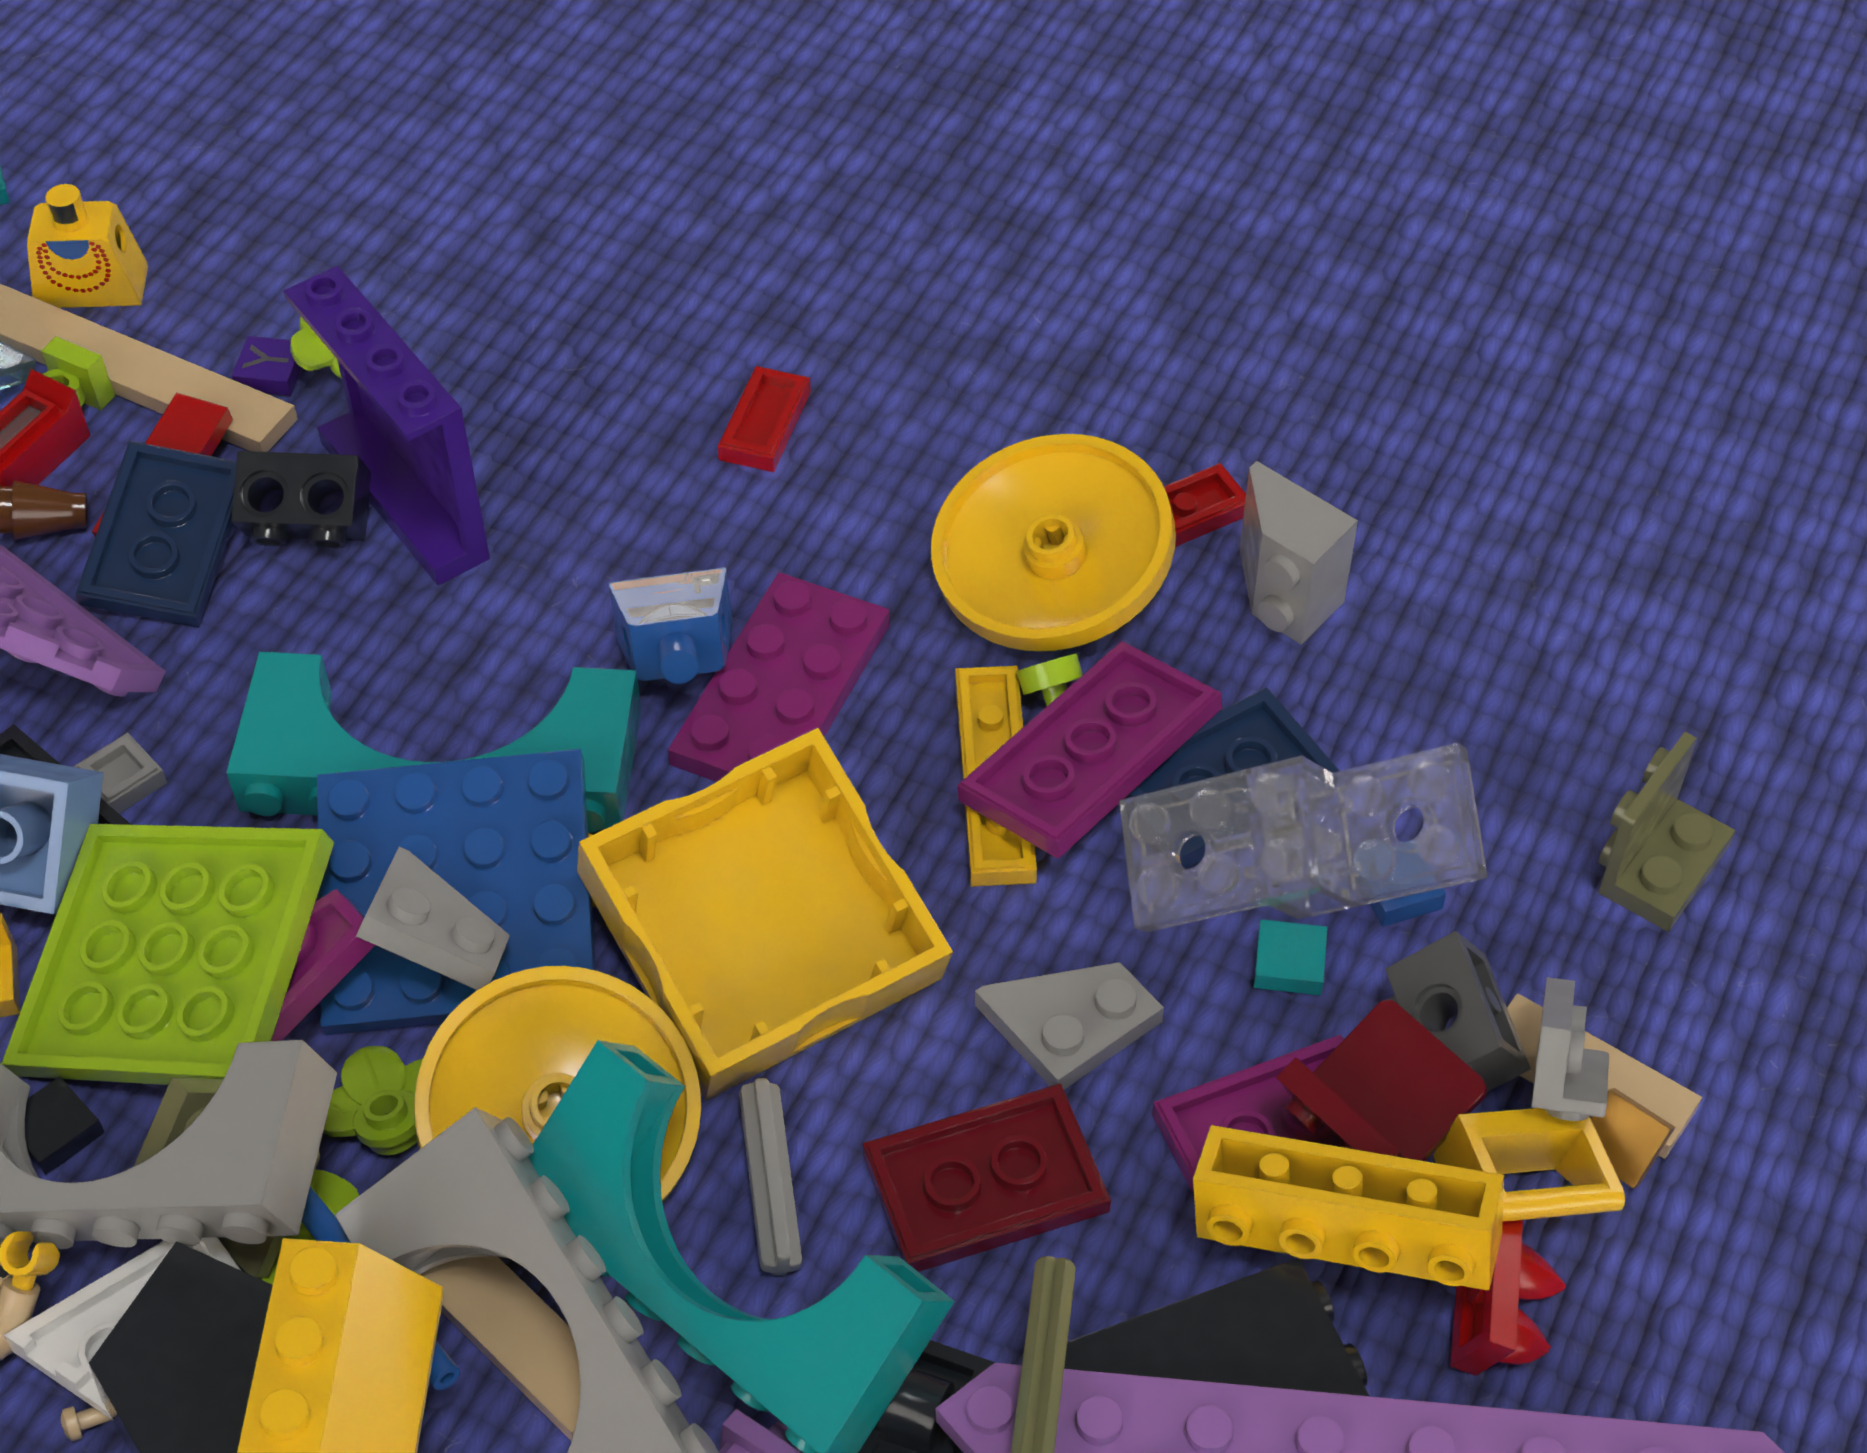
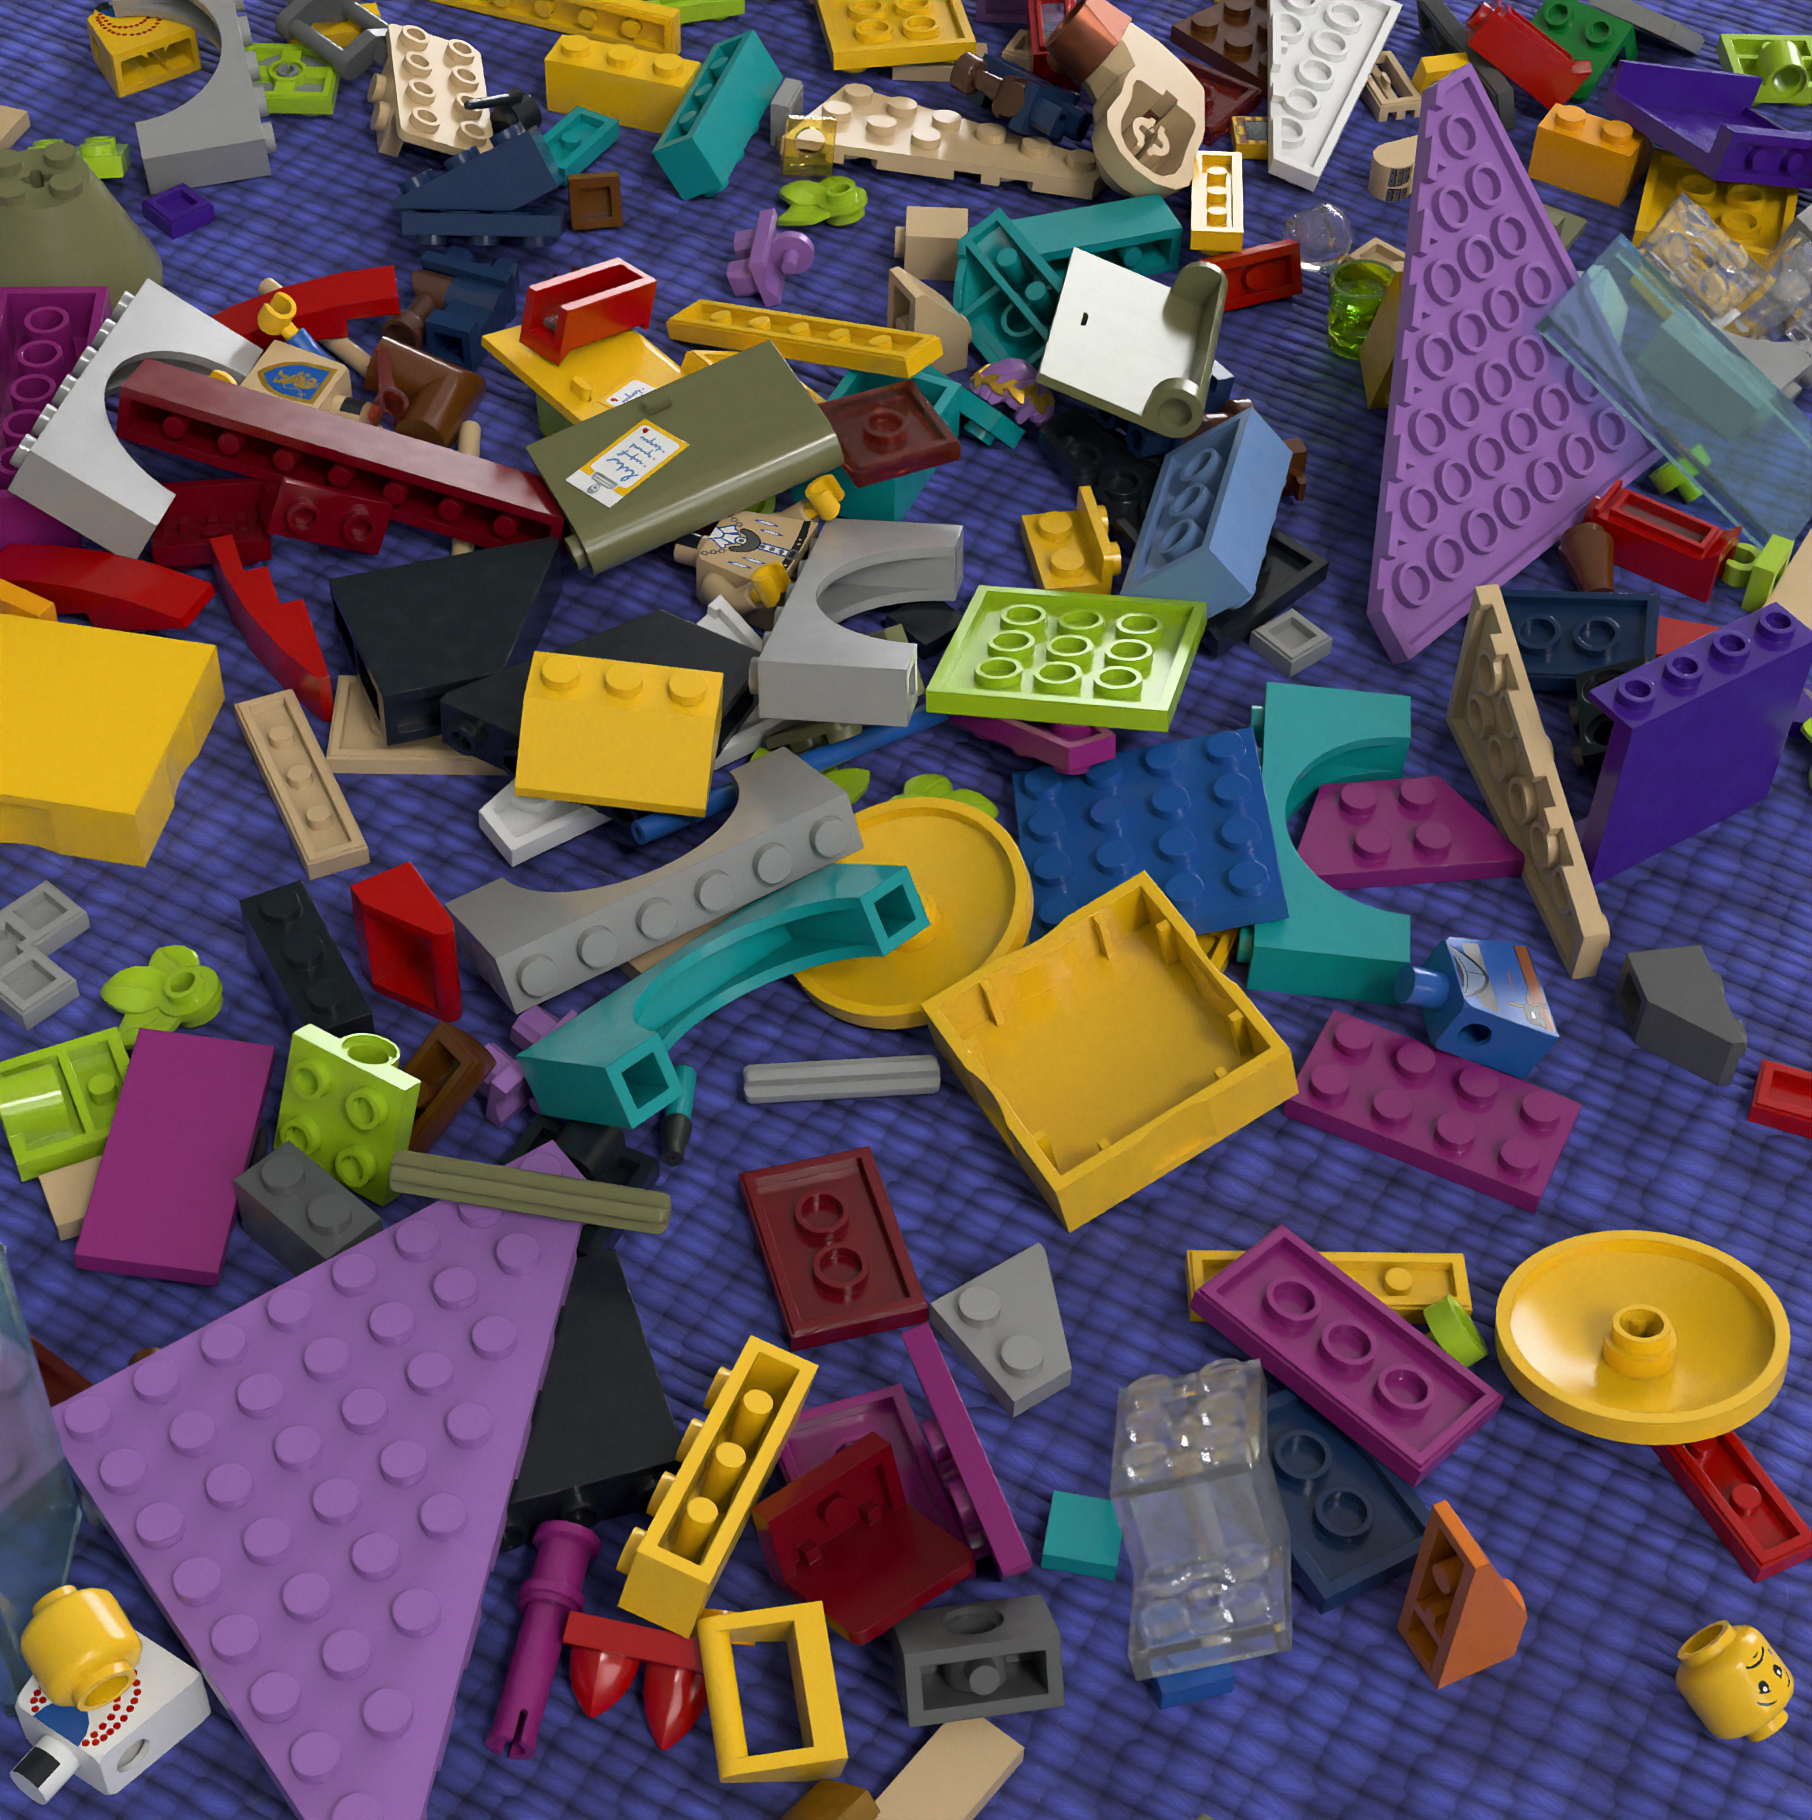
camera: 90 degrees right, 5 degrees down
(349, 573) = (1516, 773): none -> tan wing
(420, 687) = (1402, 836): none -> magenta wing
(432, 924) = (1079, 798): light grey wing -> none
(670, 491) = (1680, 1011): none -> dark grey slope
(1293, 554) = (1637, 1562): light grey slope -> none
(1293, 1010) = (963, 1462): none -> magenta wing
(1351, 667) = (1457, 1604): none -> orange slope
(1382, 516) = (1734, 1681): none -> yellow head
(1456, 1381) = (545, 1605): none -> magenta pin
(1568, 1077) = (894, 1724): light grey bracket -> none

